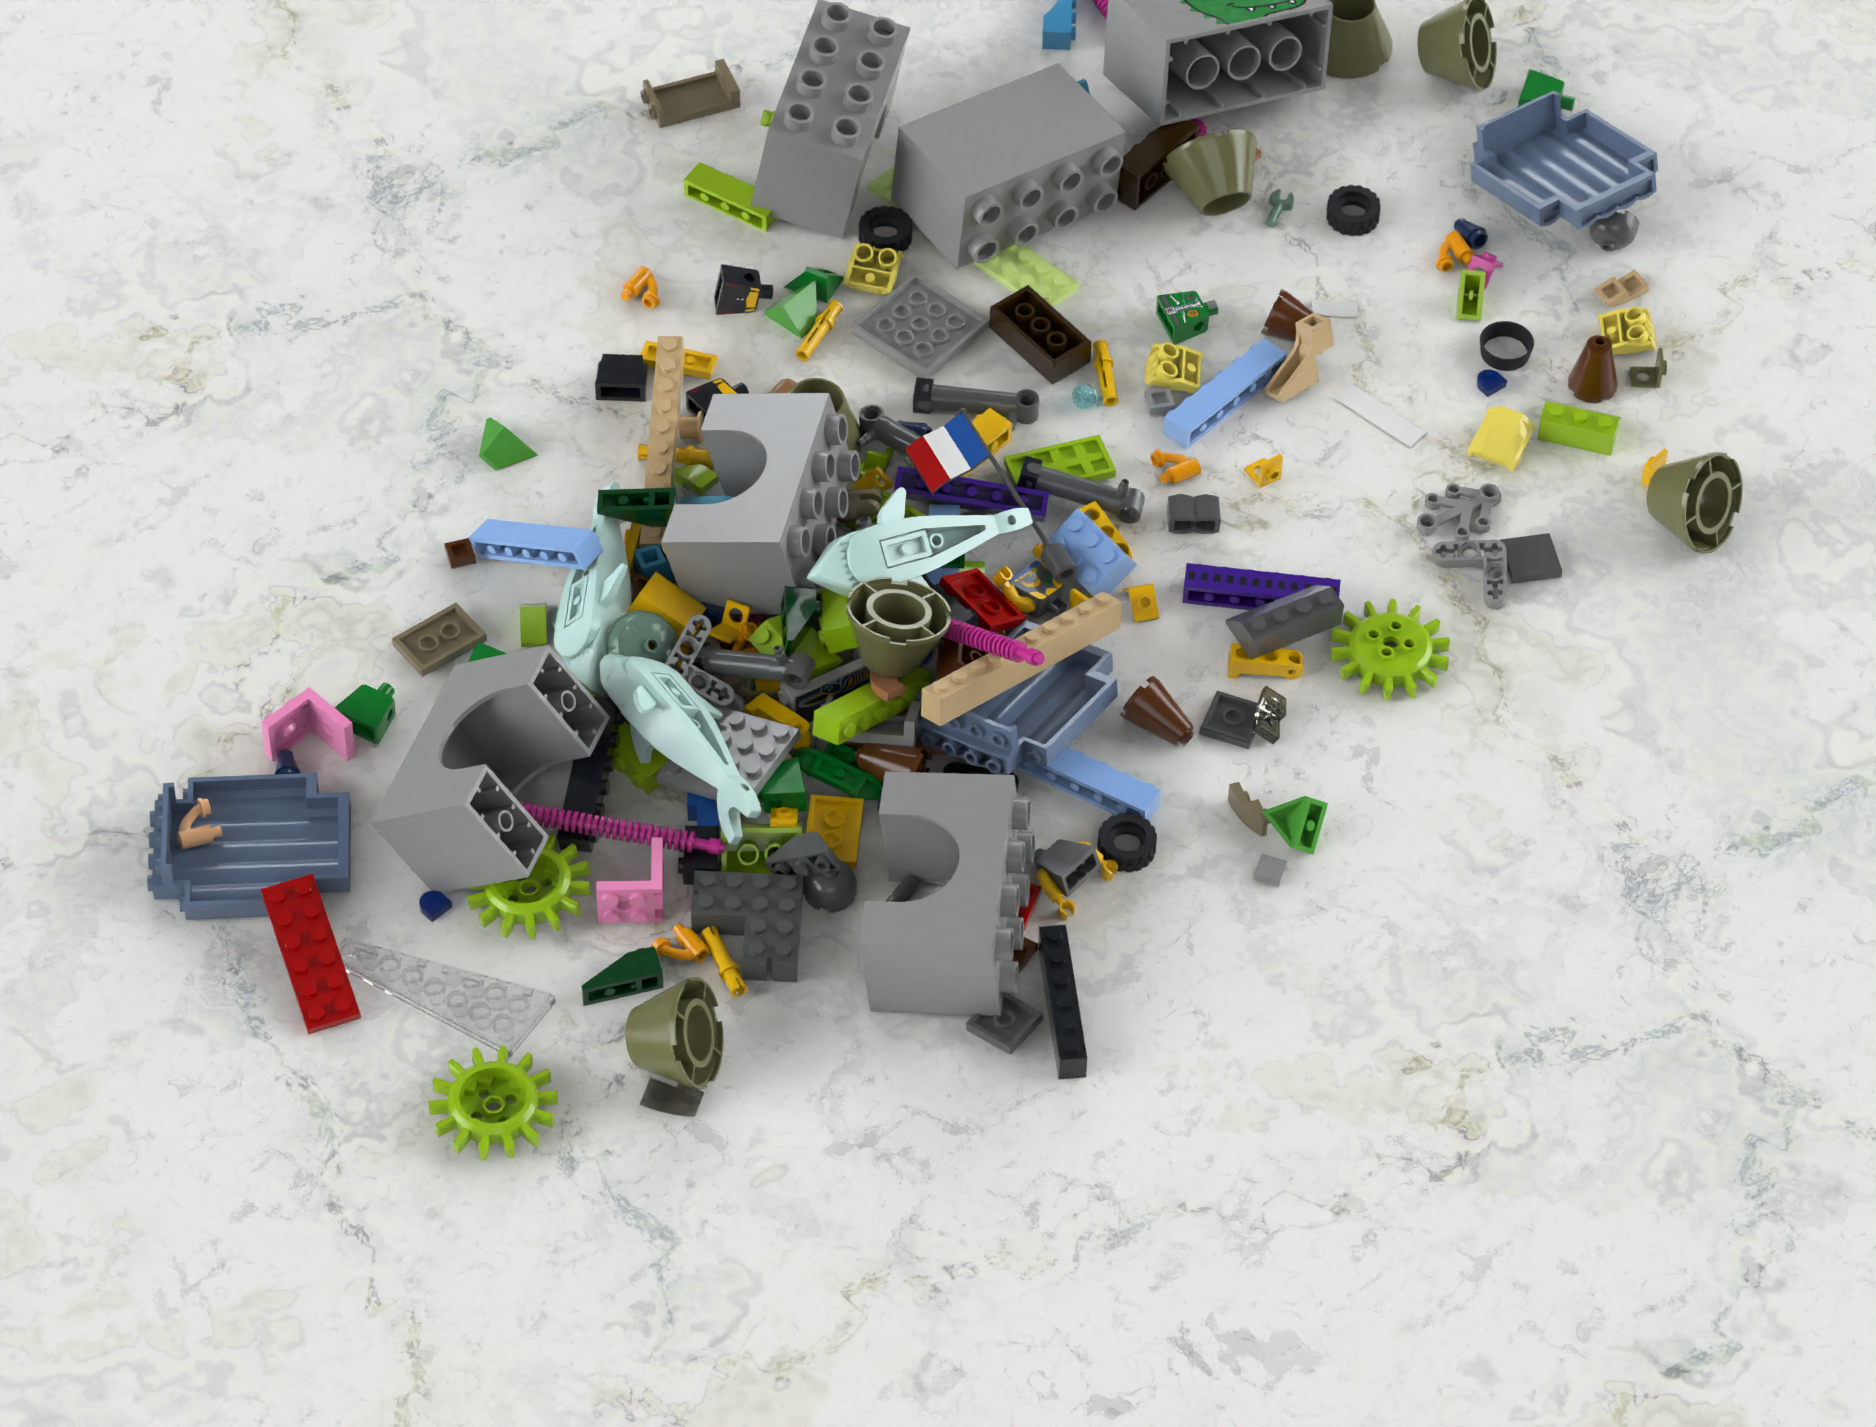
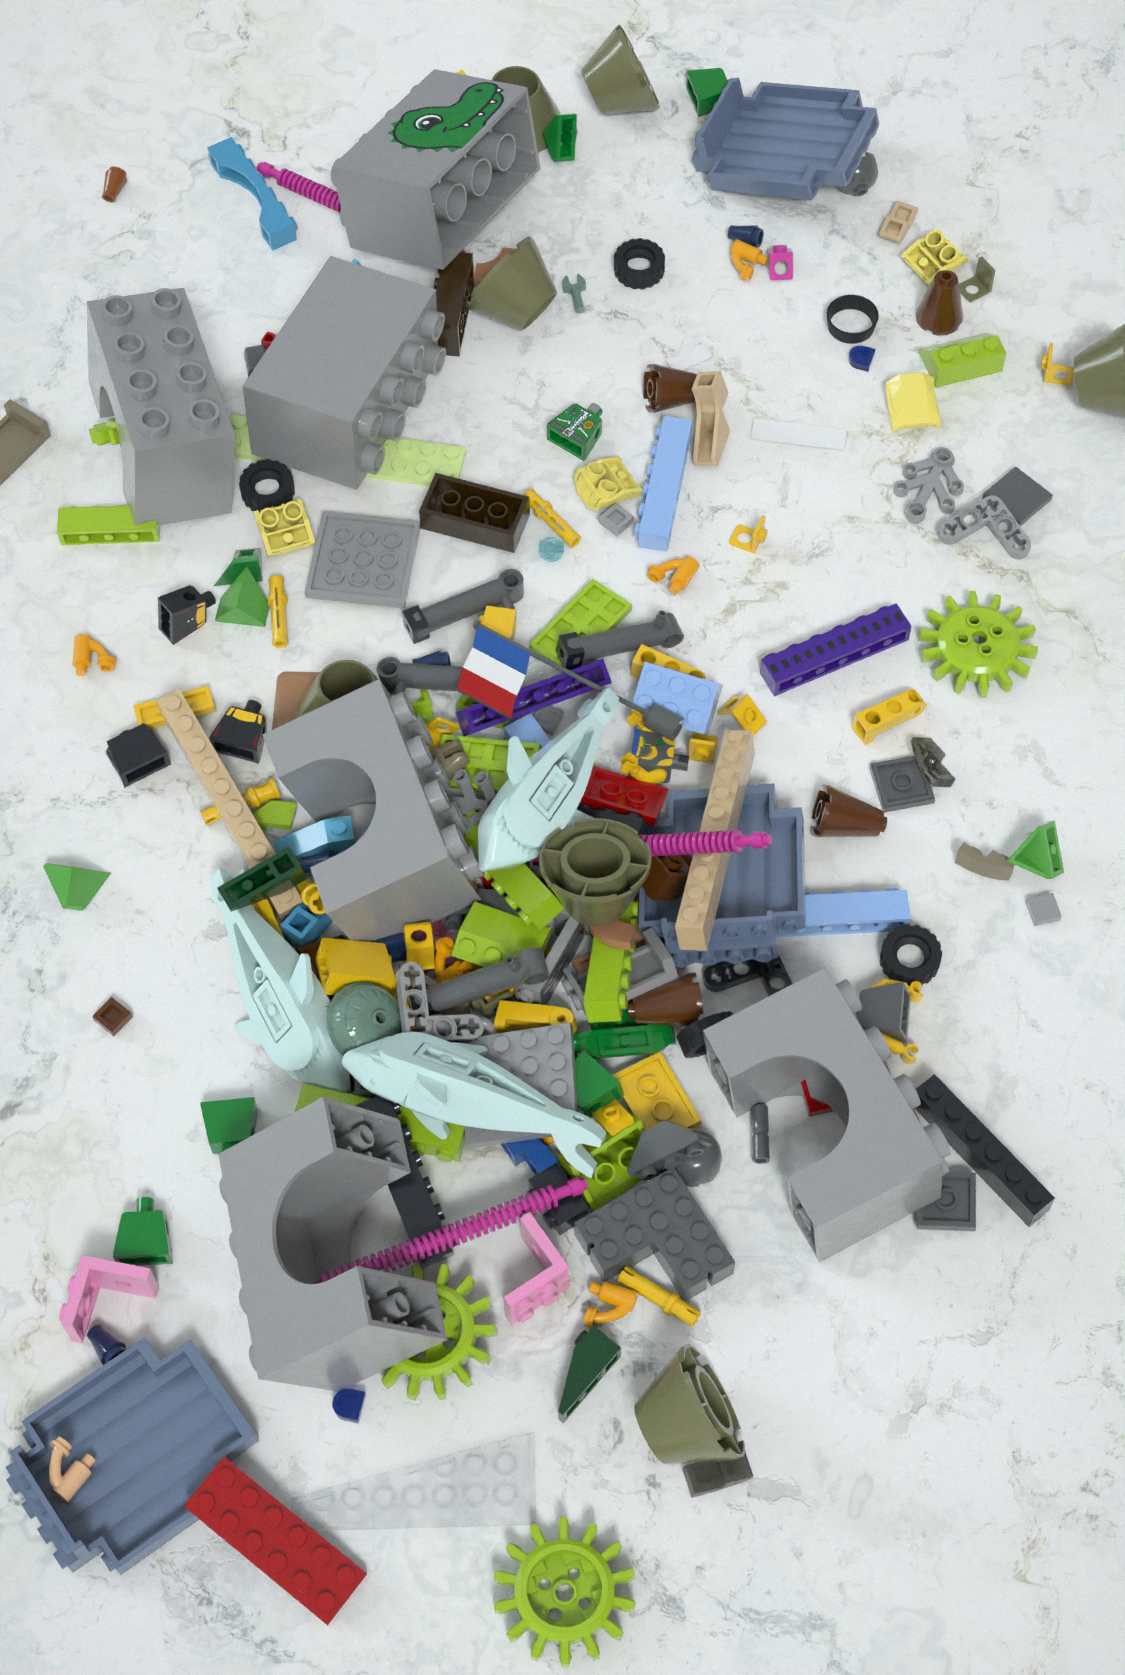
camera: 30 degrees left, 10 degrees up
(439, 639) = (156, 1118): dark tan plate -> none
(533, 624) = (231, 1048): lime slope -> none
(536, 544) = (191, 972): light blue brick -> none
(691, 427) = (237, 767): tan piece -> none
(797, 616) = (486, 909): dark green slope -> none
(1193, 514) = (725, 608): dark grey brick -> none
(1287, 620) = (886, 665): dark grey slope -> none
(1370, 73) = (561, 137): none -> green slope
(1470, 294) = (791, 290): lime slope -> none

